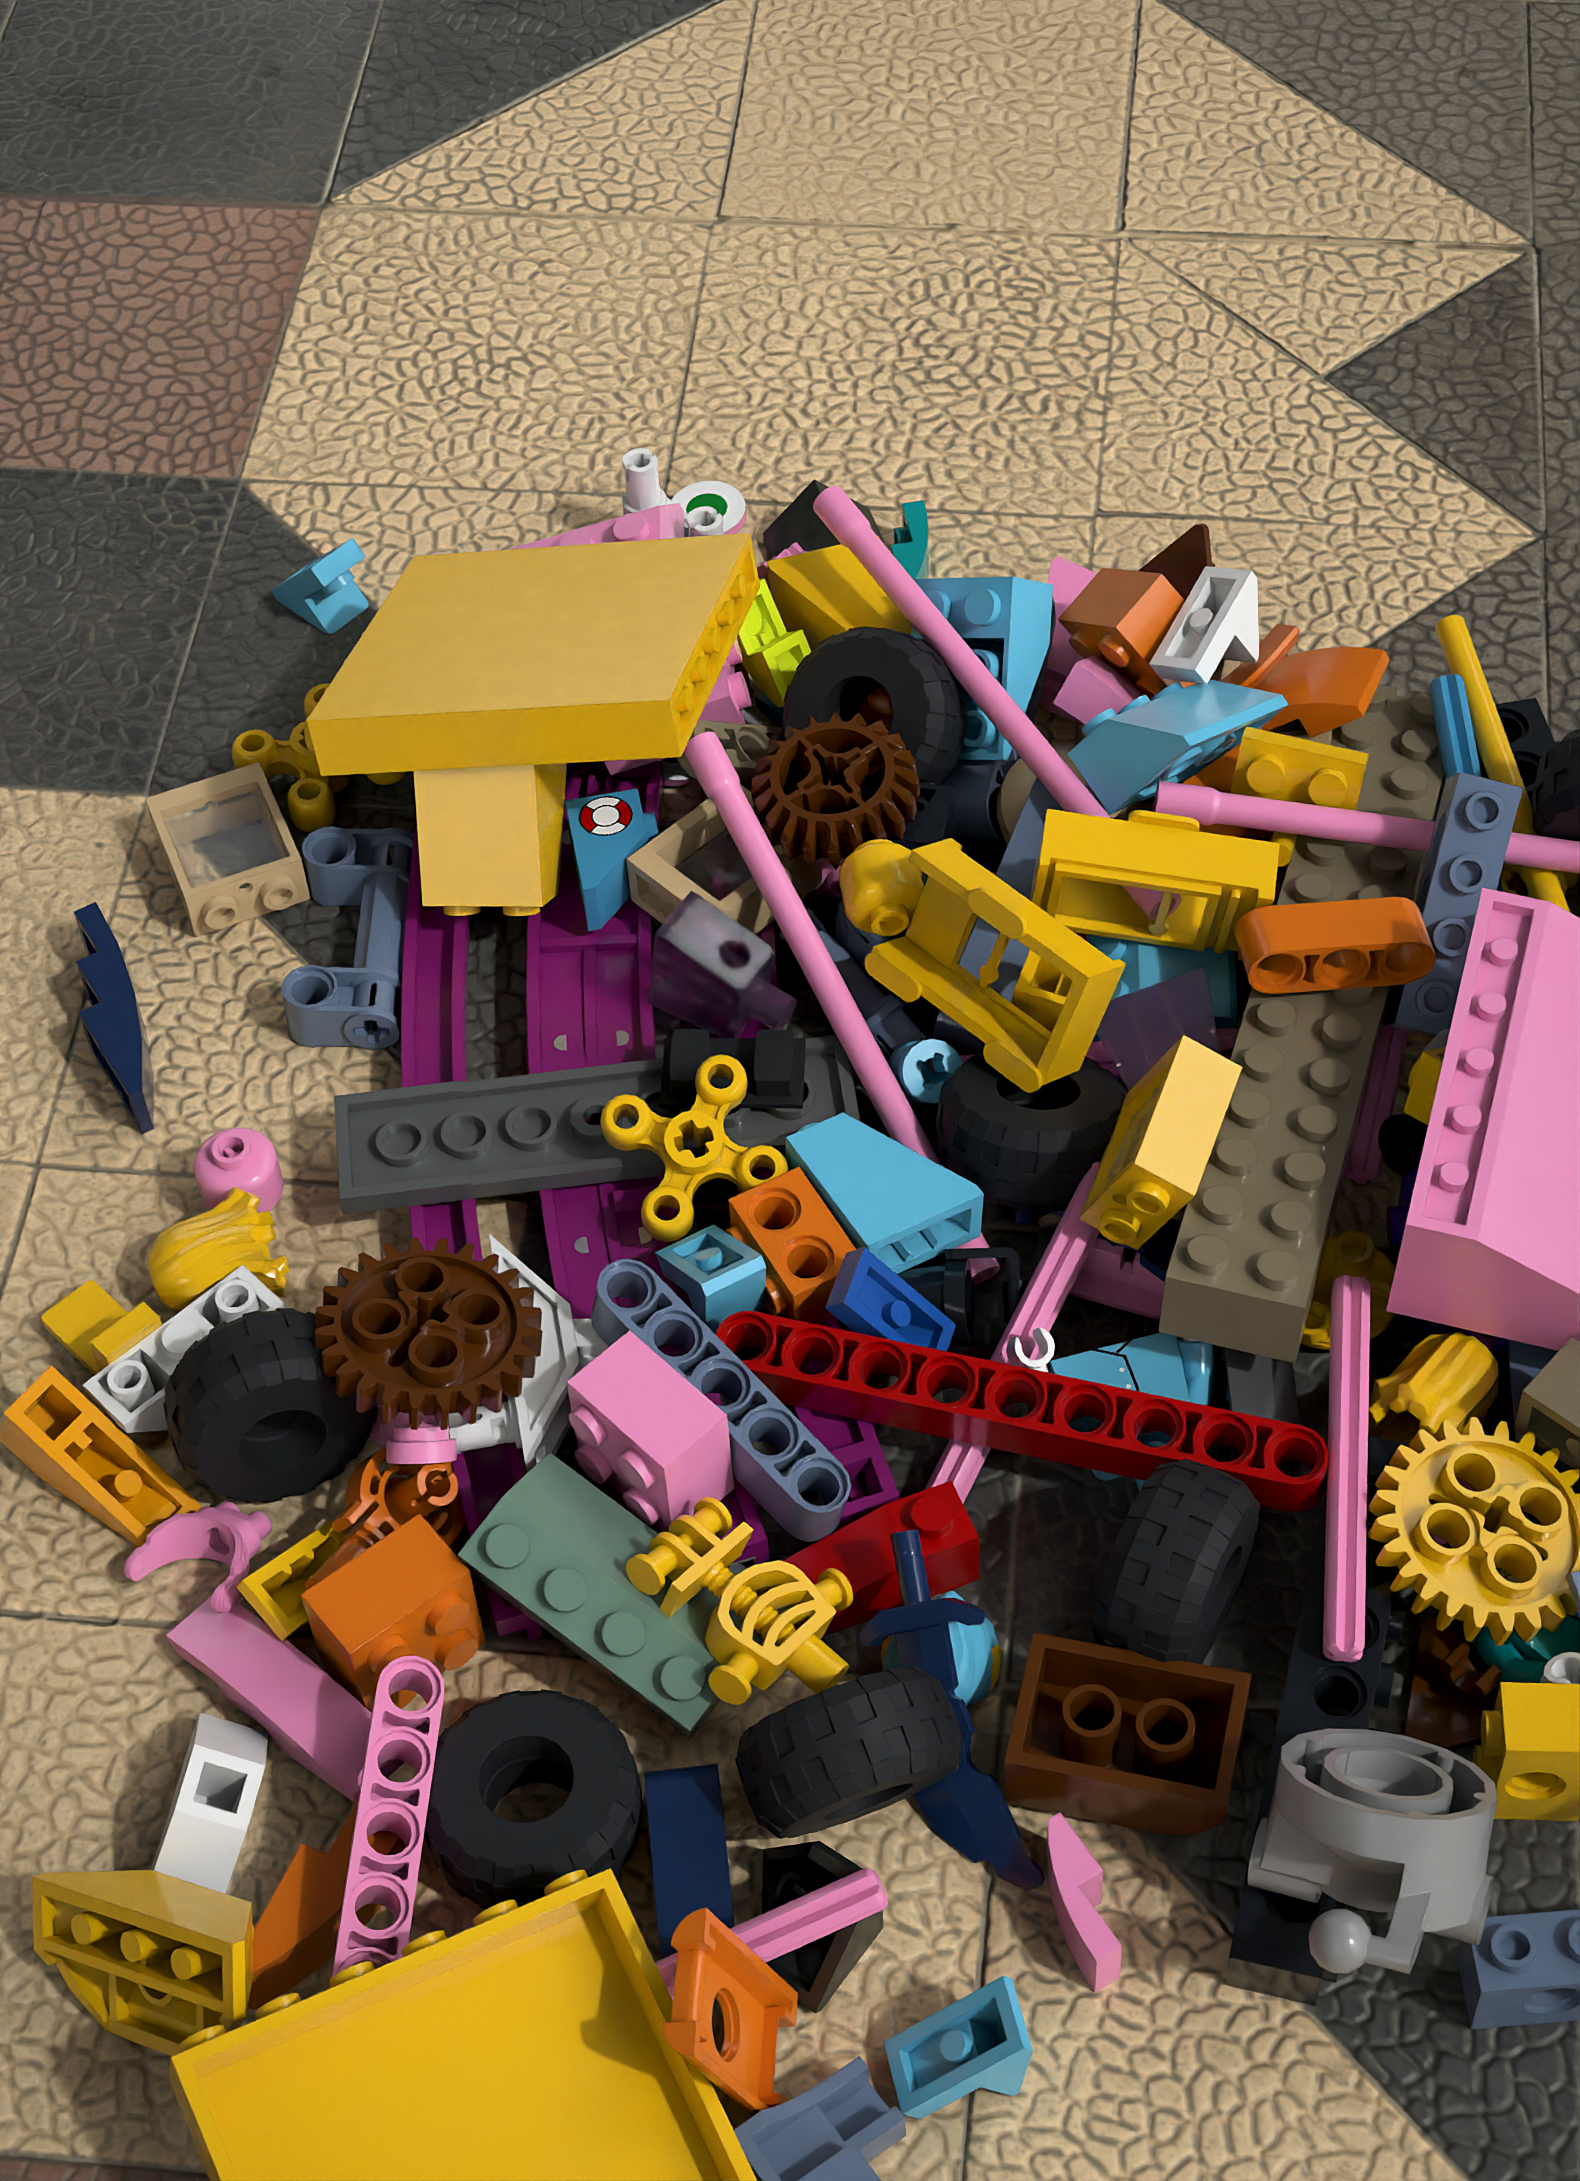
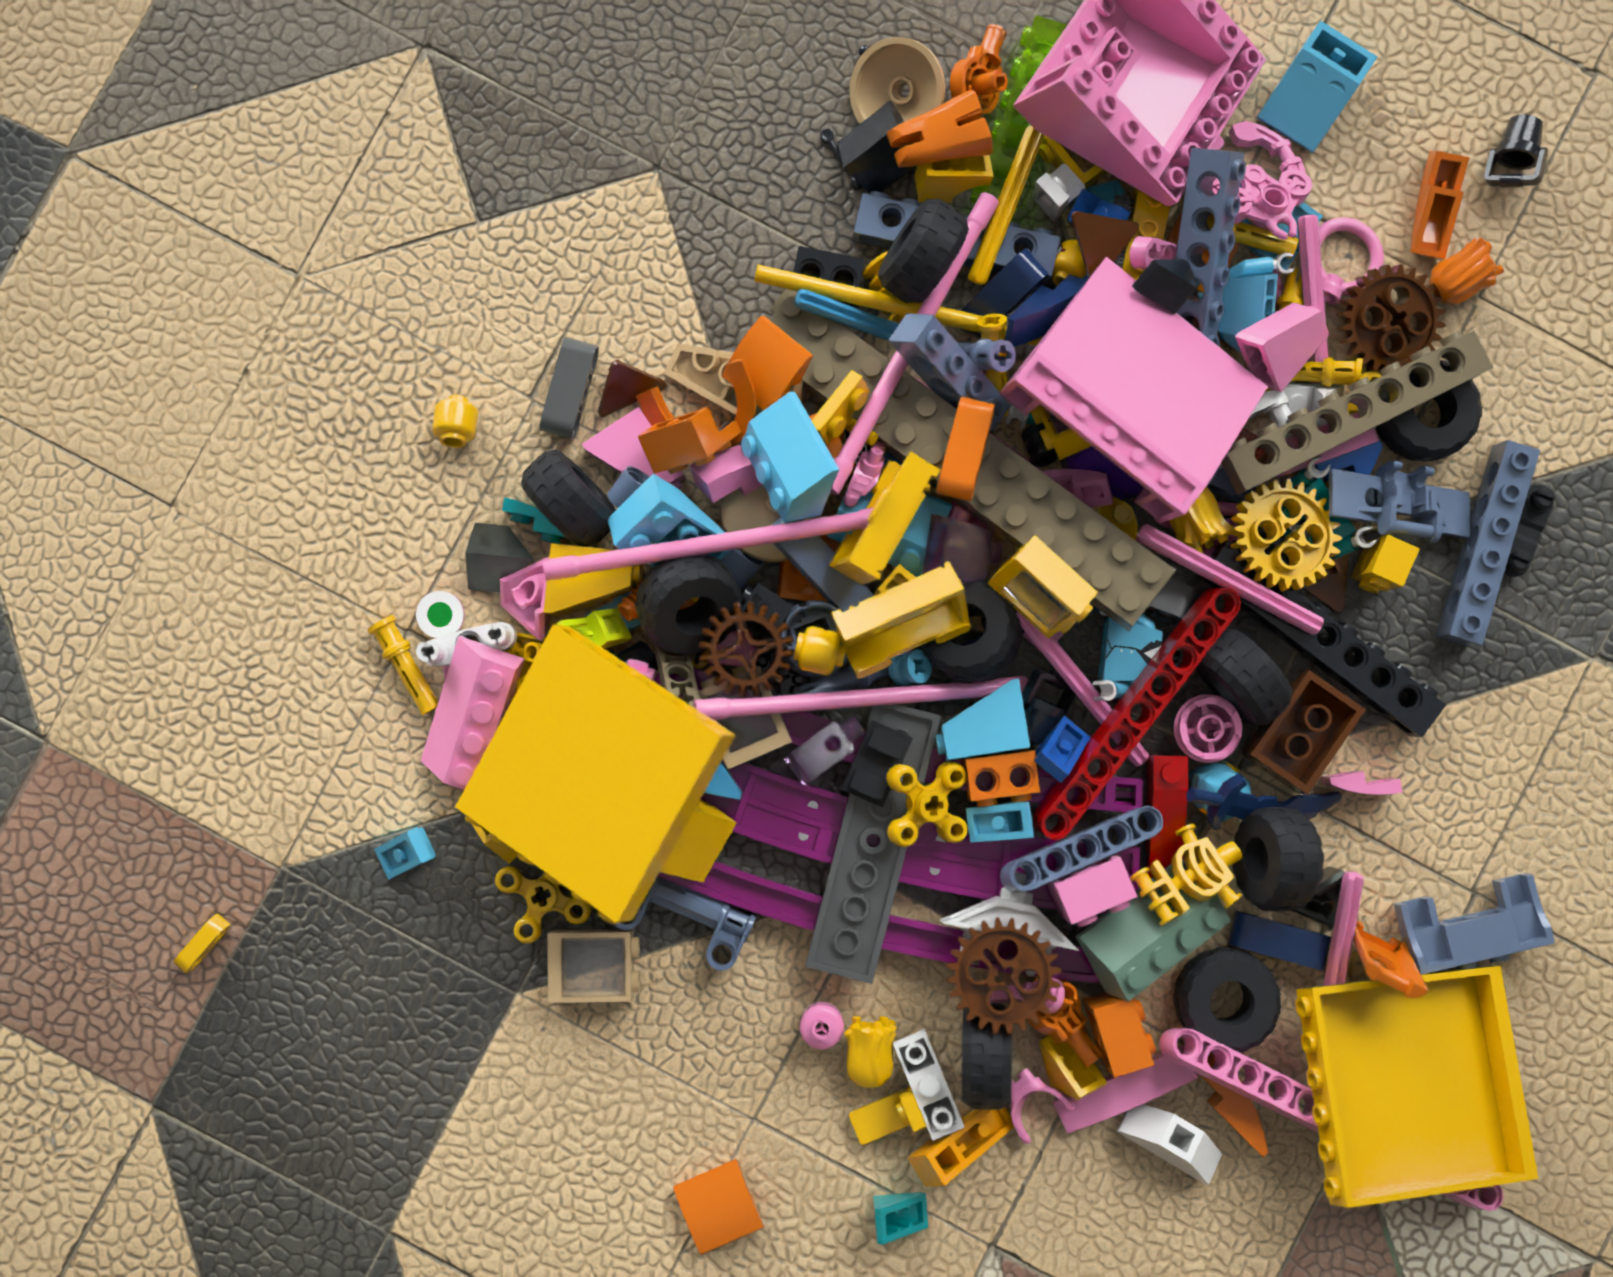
camera: 75 degrees left, 35 degrees up
(92, 422) = (202, 943): none -> yellow beam
(114, 1019) = (698, 1057): dark blue slope -> none
(147, 1951) = (1245, 1184): yellow wedge -> none
(606, 499) = (397, 651): none -> yellow pin
(960, 2050) = (1411, 862): medium azure slope -> none
(965, 527) = (568, 498): none -> black tyre
(1007, 429) = (455, 421): none -> yellow head
(1046, 1562) = (1207, 728): none -> bright pink cone
(1130, 529) = (569, 388): none -> dark grey beam
(1211, 626) = (724, 406): white slope -> none
(1375, 1198) = (1086, 485): none -> bright pink slope
(1382, 1831) = (1409, 636): light grey piece -> none

